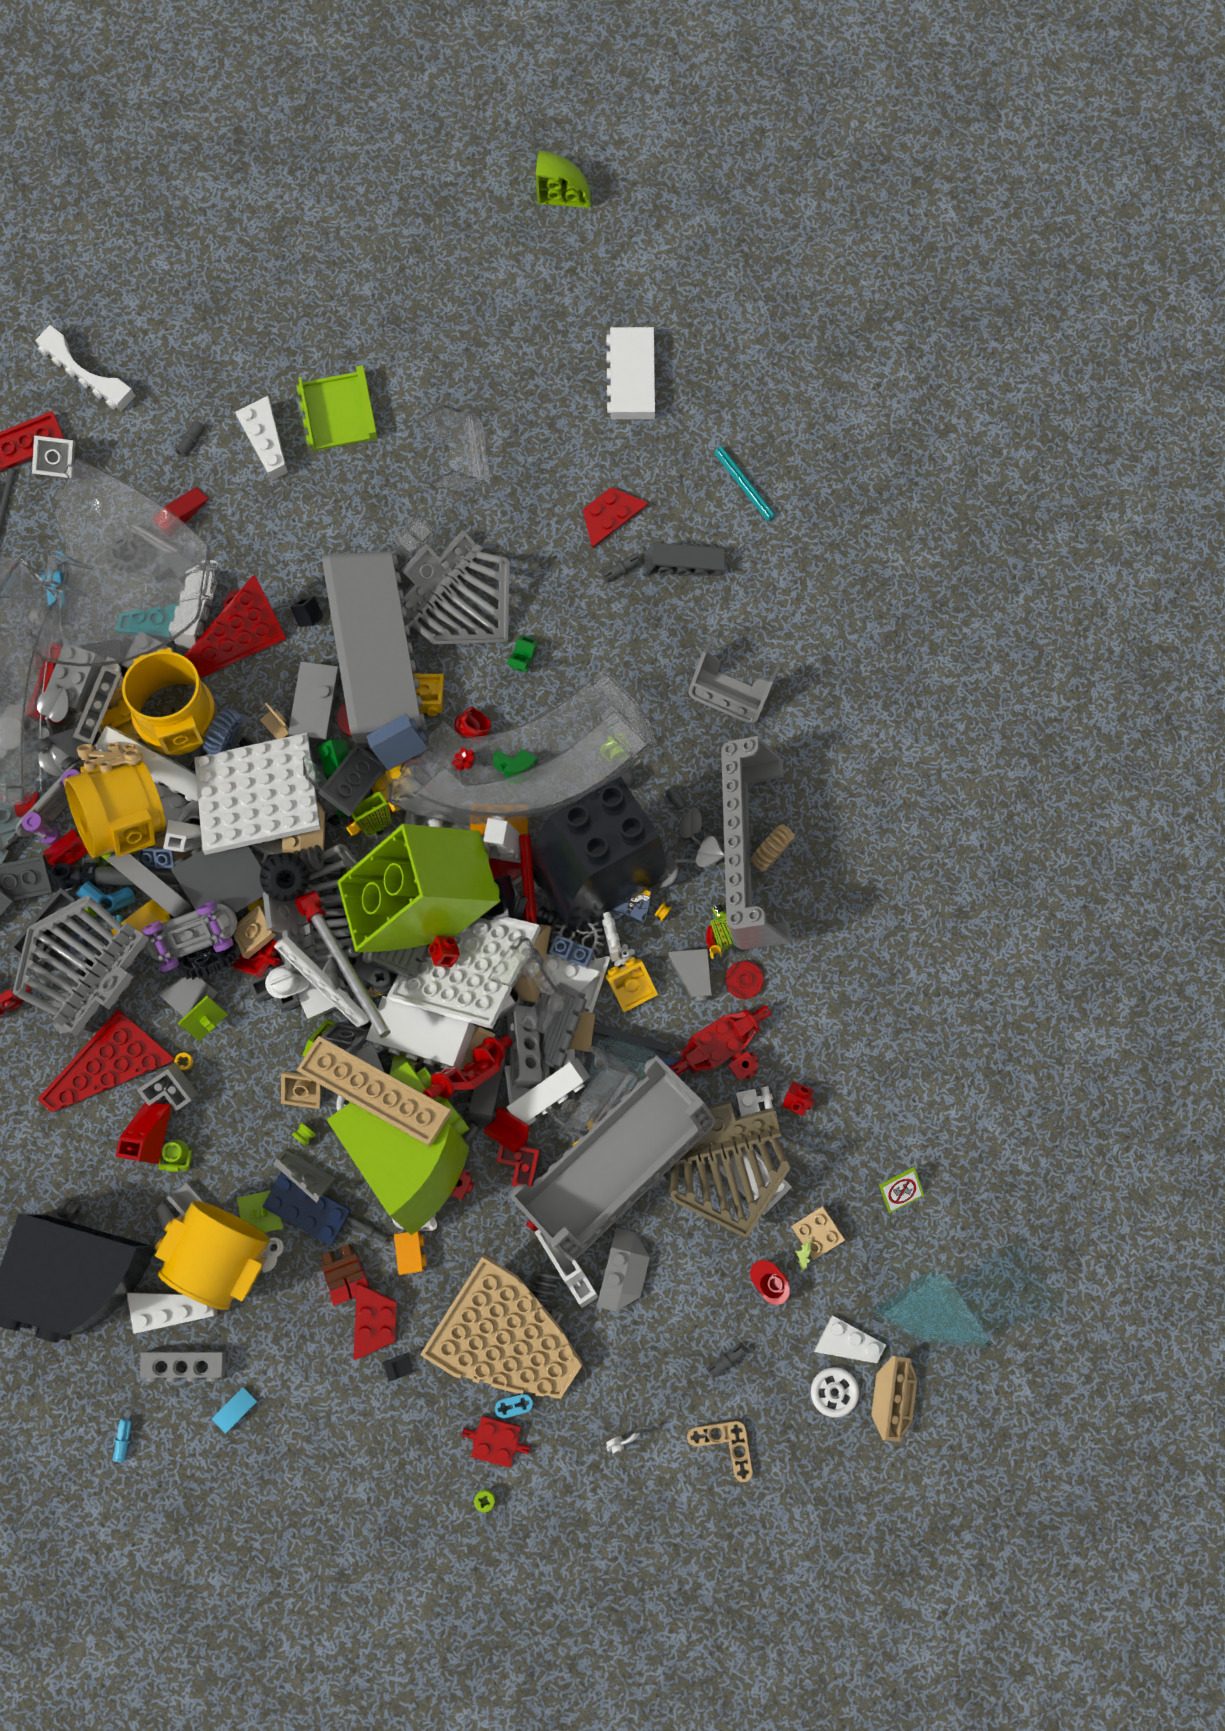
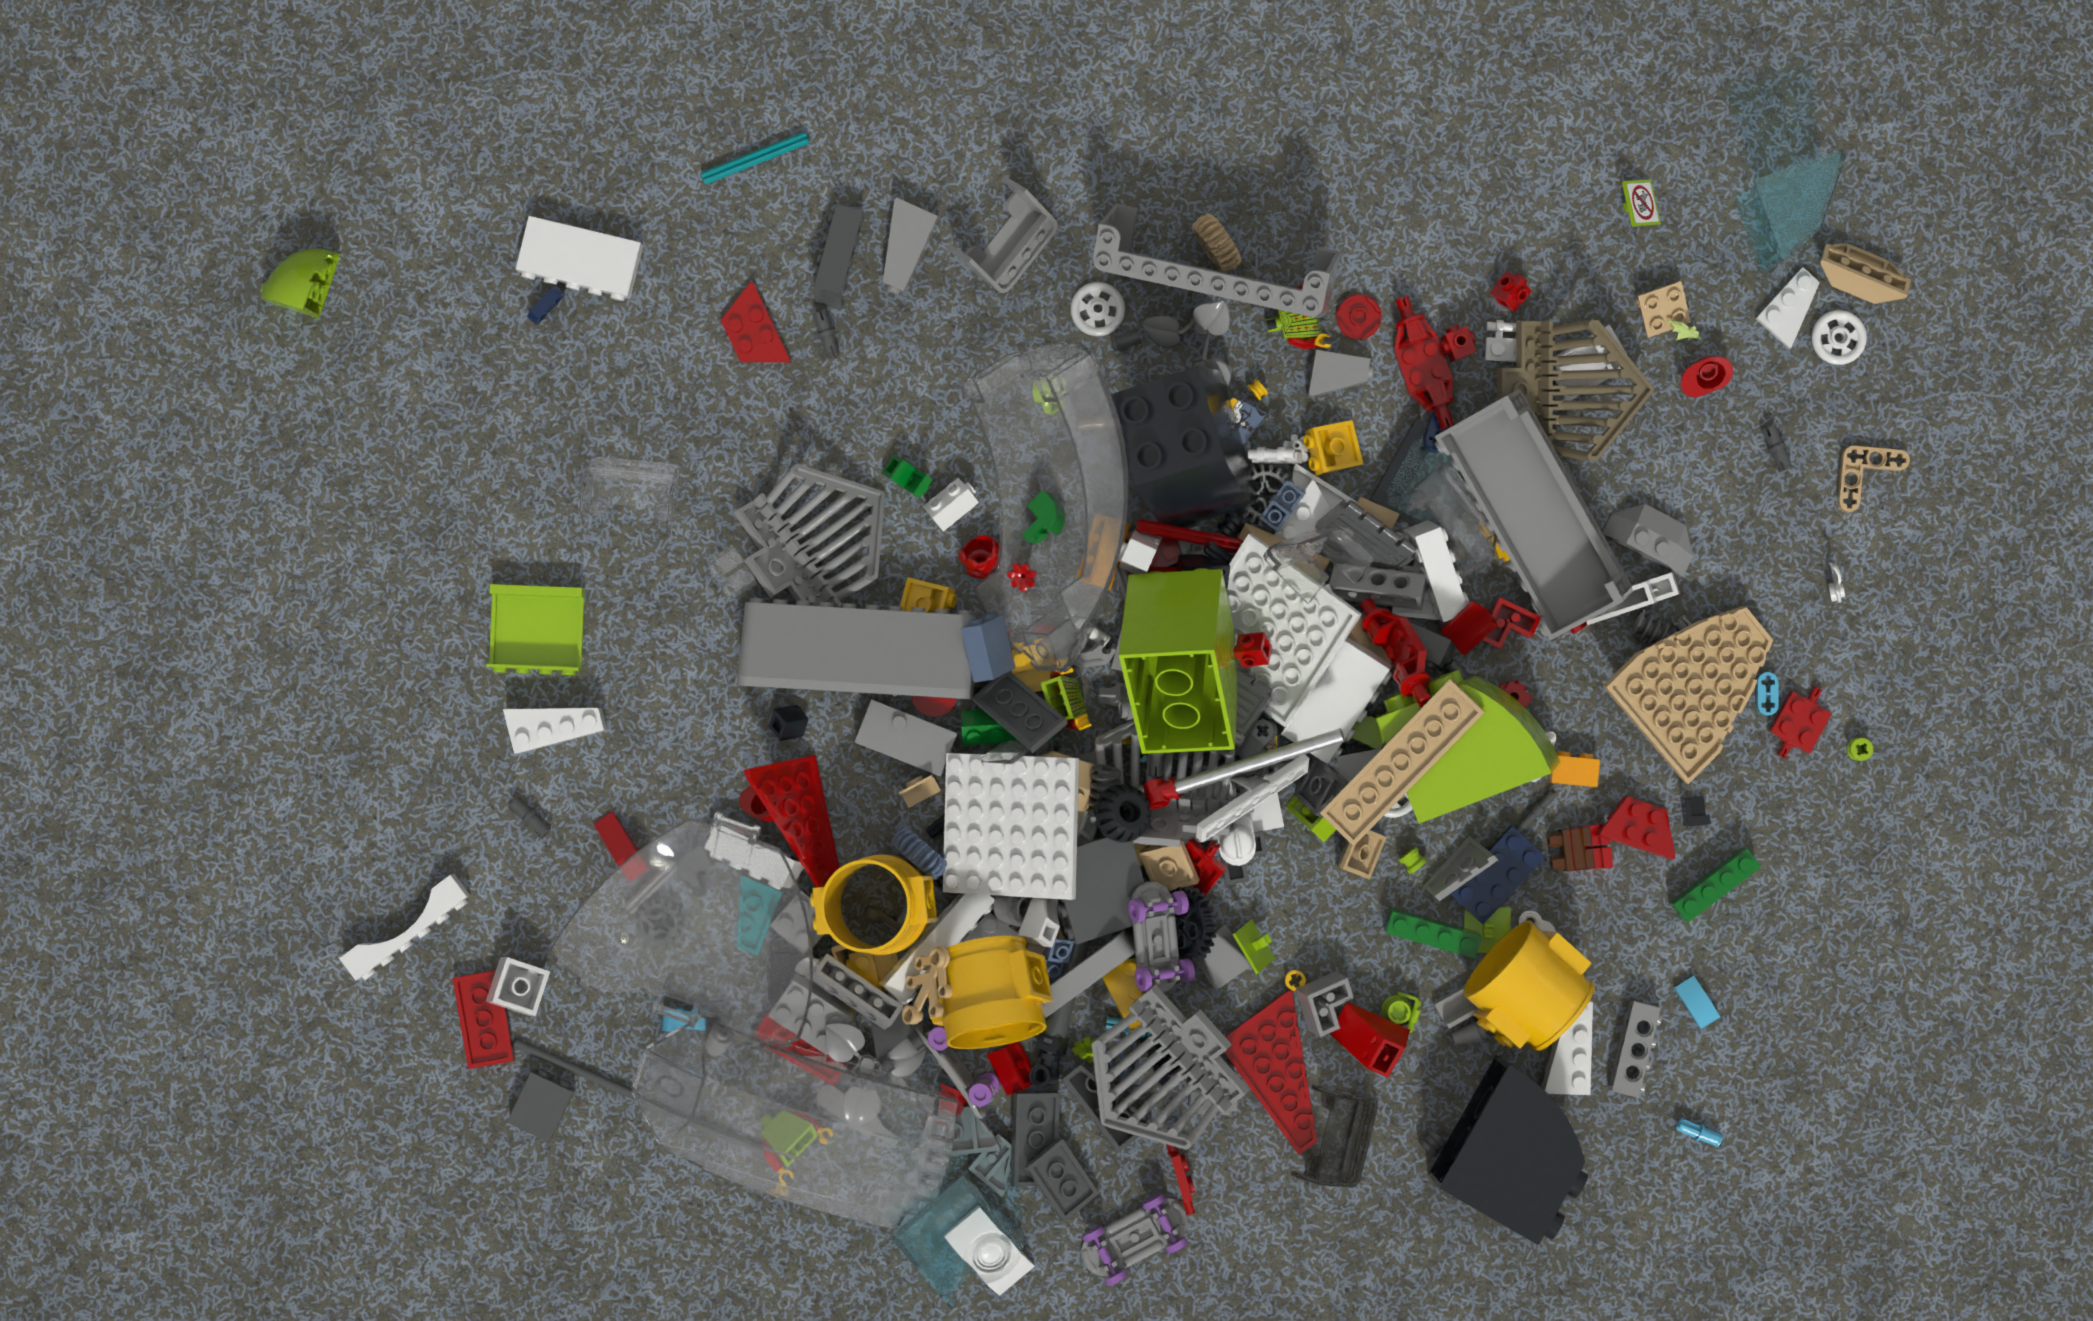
camera: 75 degrees left, 10 degrees up
(55, 1136) = (1344, 1139): none -> clear smoke windscreen
(115, 900) = (1090, 1019): dark azure piece -> none
(246, 1165) = (1432, 932): none -> green brick
(338, 1399) = (1714, 884): none -> green brick
(509, 692) = (951, 503): none -> white brick
(589, 358) = (545, 305): none -> dark blue beam
(687, 784) = (1115, 300): none -> white plate
(706, 610) = (907, 241): none -> light grey slope

